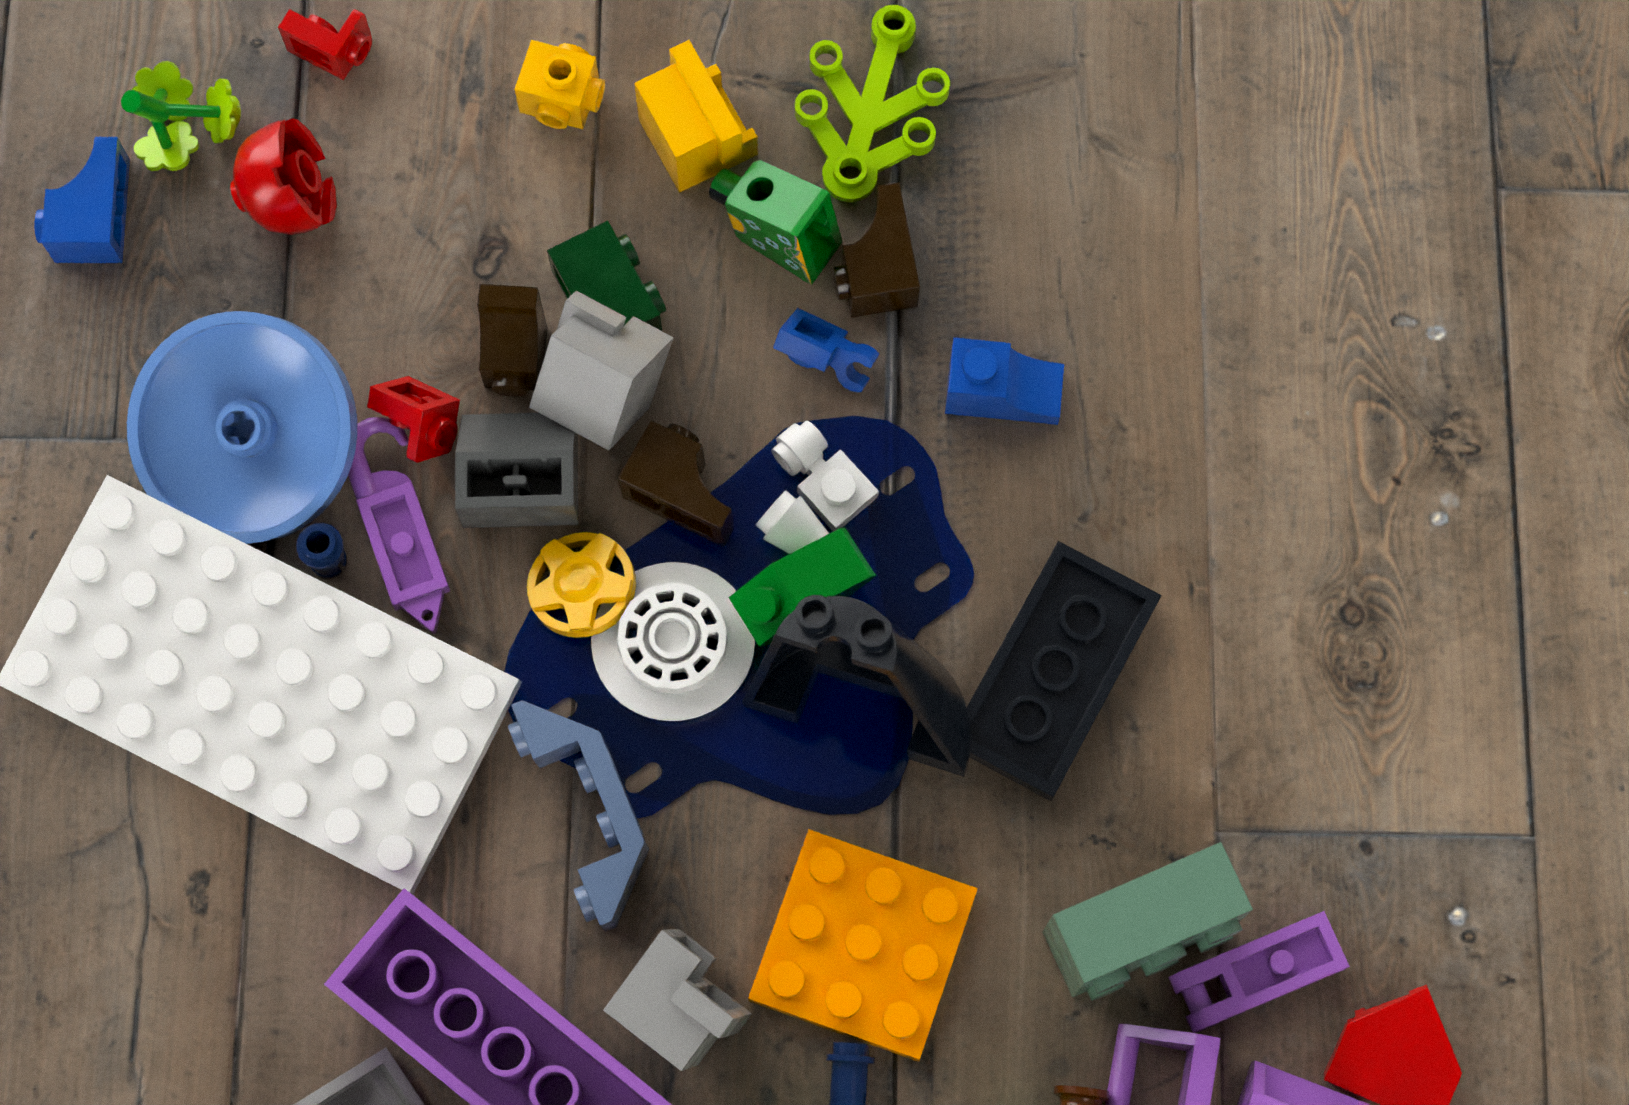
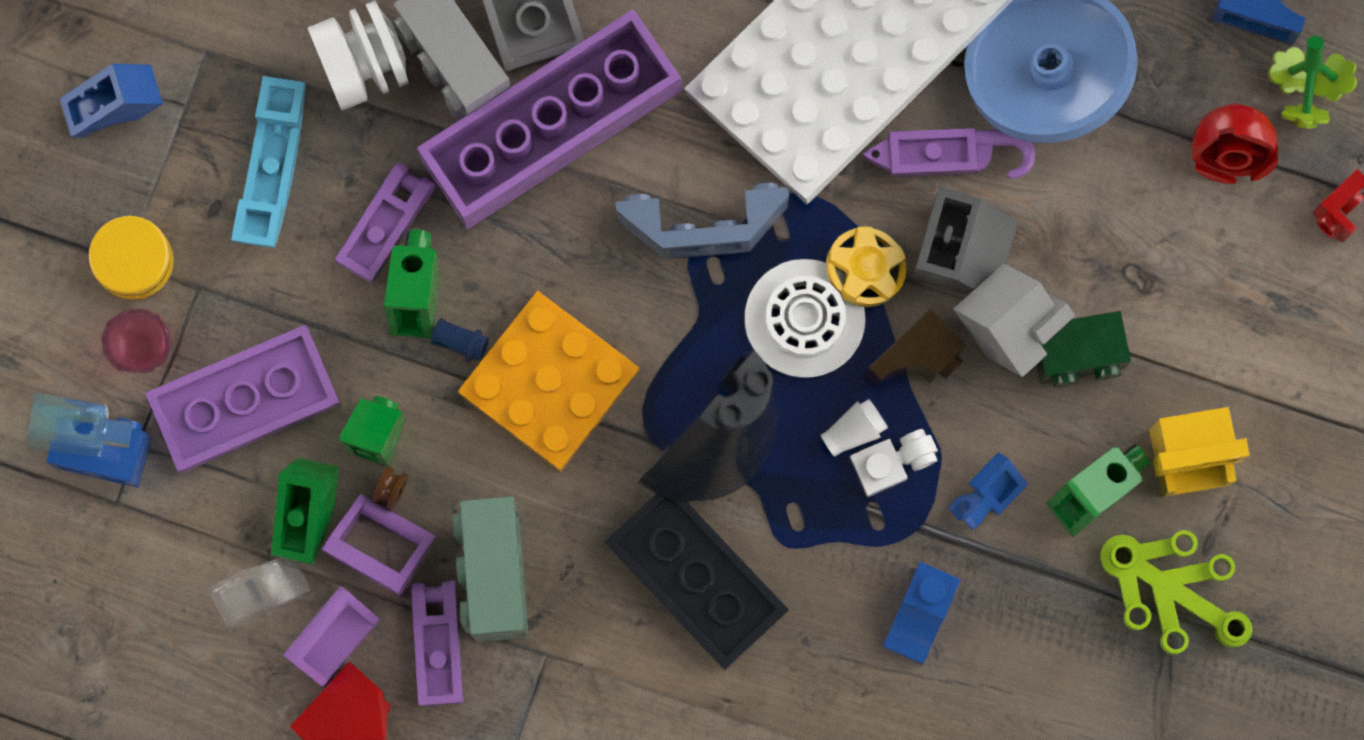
camera: 110 degrees right, 5 degrees up
(322, 538) = (944, 85): dark blue pin -> none
(422, 410) = (1026, 190): red bracket -> none
(511, 338) = (1059, 266): dark brown arch -> none
(559, 85) = (1263, 351): yellow brick -> none
(673, 1003) = (545, 237): light grey plate -> none
(821, 568) = (808, 411): green slope -> none
(880, 267) = (1041, 555): dark brown arch -> none

